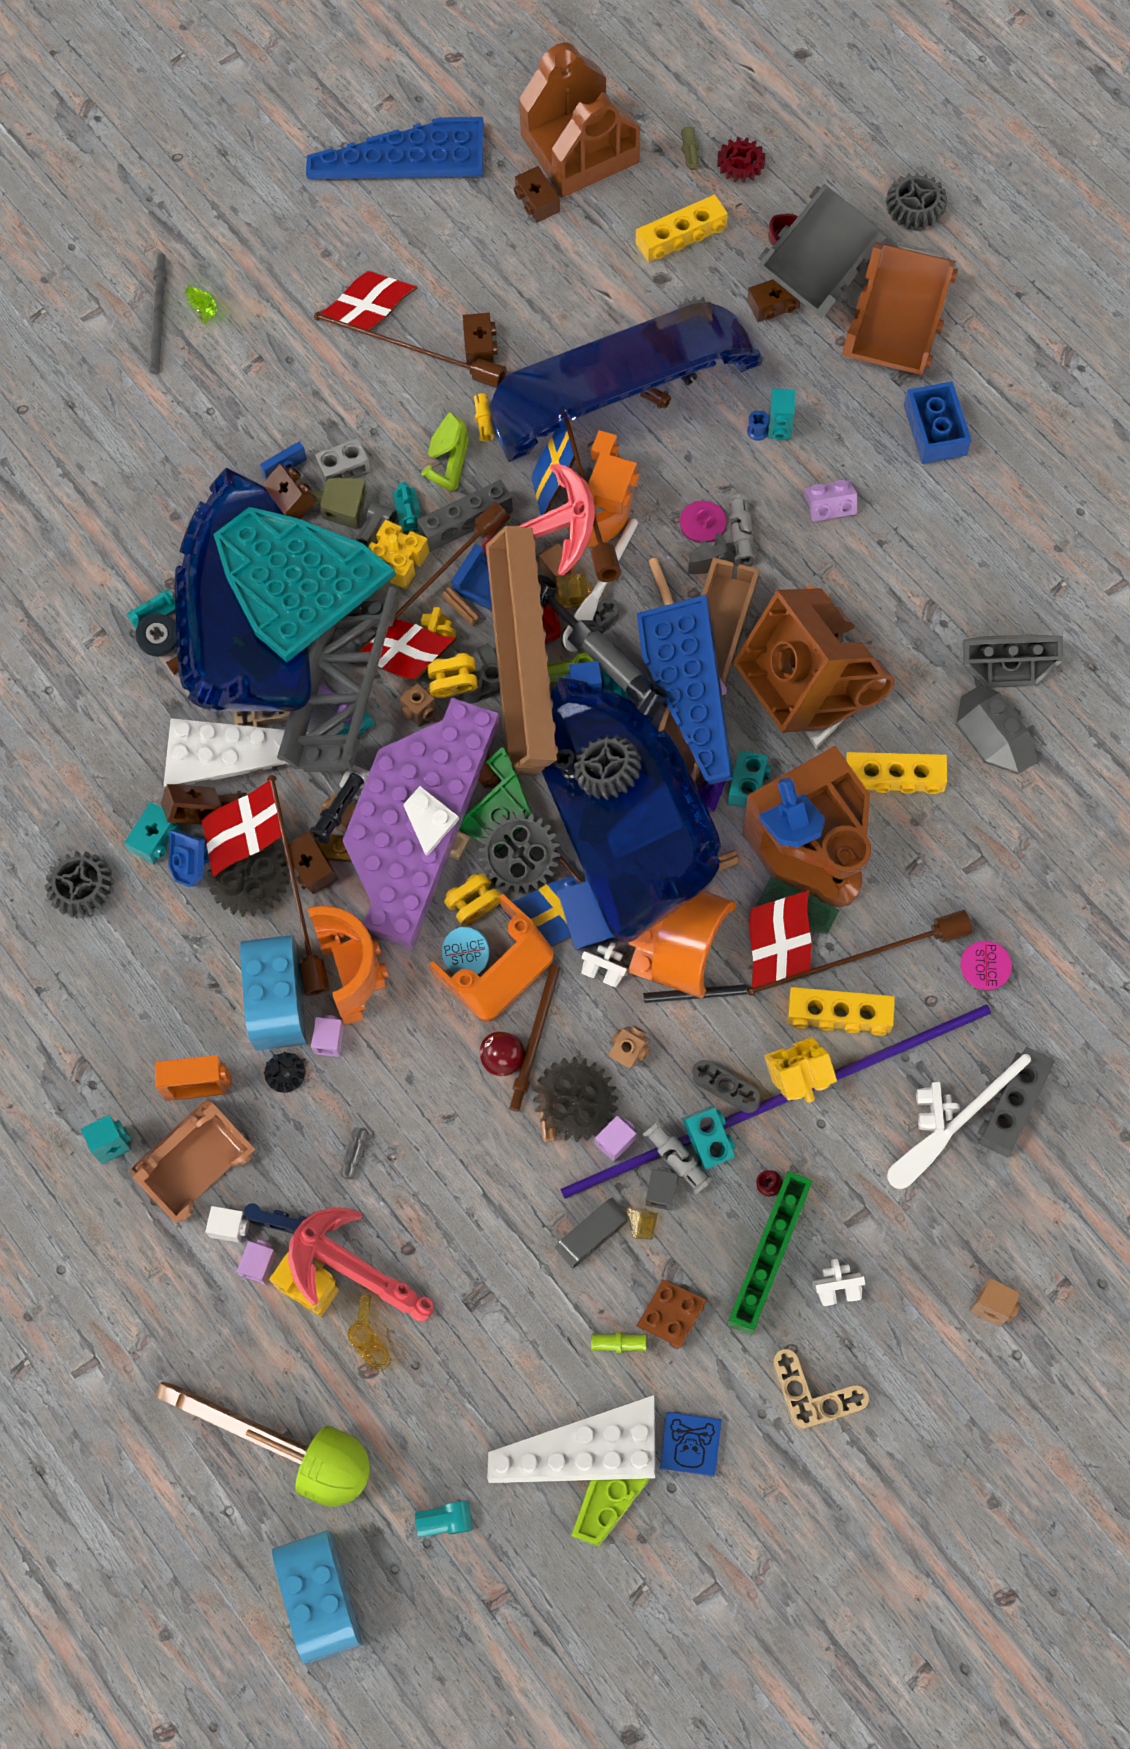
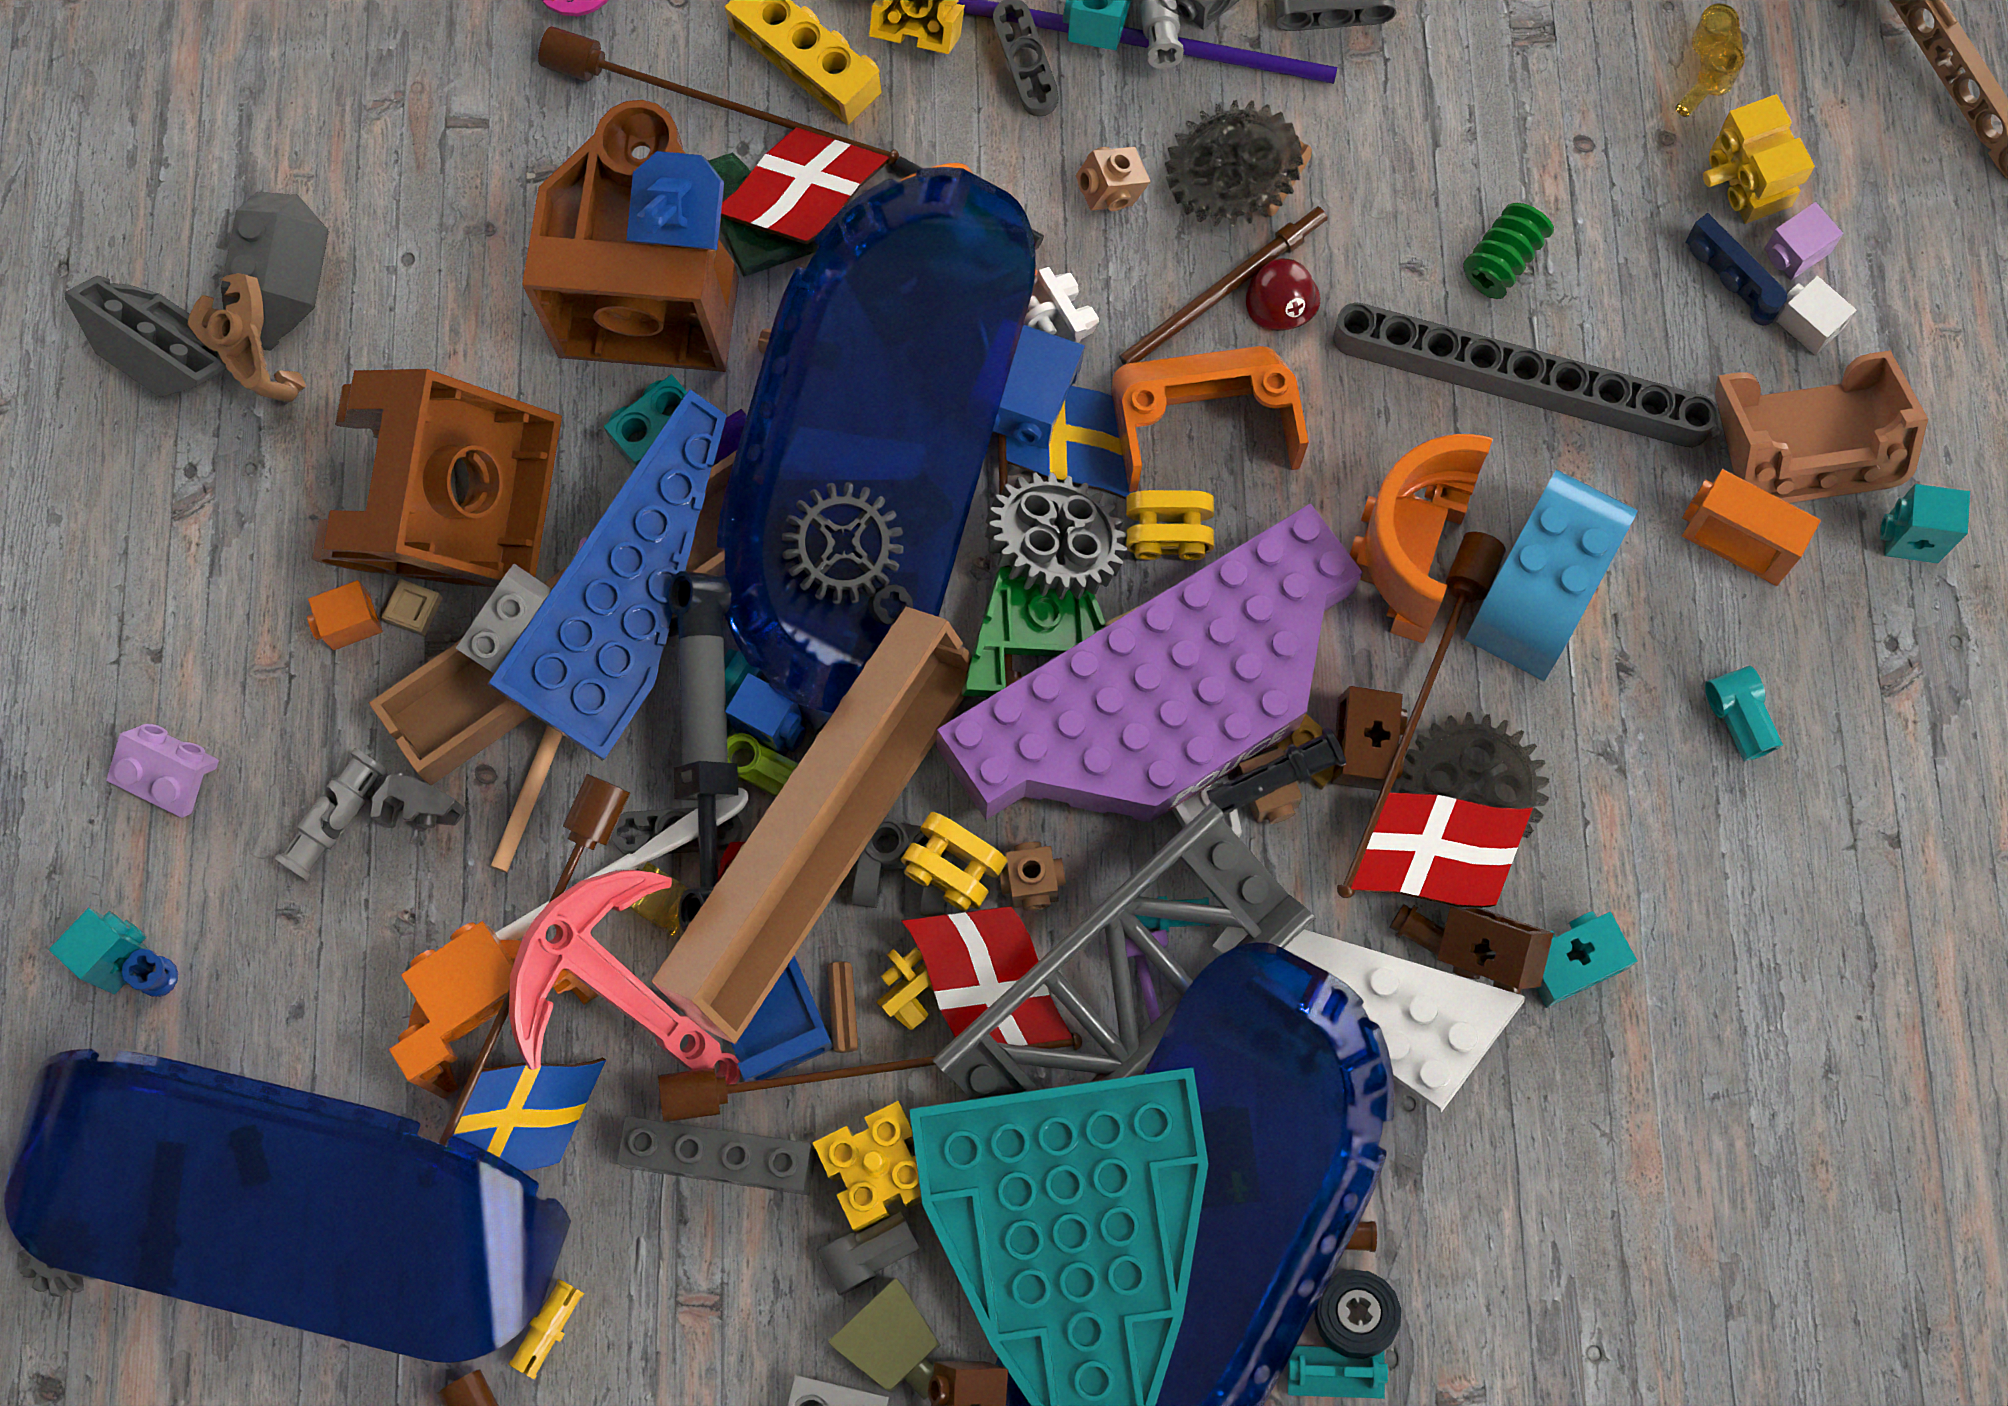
camera: 140 degrees left, 5 degrees up
(80, 867) = (1756, 964): dark grey gear -> none
(148, 999) = (1740, 701): none -> teal piece
(187, 857) = (1551, 870): blue piece -> none
(281, 1083) = (1587, 456): black gear -> none
(310, 1243) = (1703, 156): coral piece -> none
(327, 1036) = (1511, 471): lavender brick -> none
(341, 1086) = (1543, 367): none -> dark grey beam
(353, 1153) = (1577, 300): flat silver axle -> none
(404, 1150) = (1507, 249): none -> green piece
(407, 507) = (796, 1247): teal hinge -> none
(429, 818) = (1159, 639): white wing -> none
(451, 437) = (640, 1320): lime piece -> none
(466, 950) = (1236, 452): medium azure piece -> none
(550, 561) = (644, 952): medium nougat brick -> none
(616, 1138) = (1216, 82): lavender brick -> none
(702, 521) = (371, 882): dark pink piece -> none
(726, 629) = (503, 618): none -> light grey brick
(931, 765) = (499, 341): yellow brick -> none
(968, 674) = (237, 339): none -> medium nougat animal

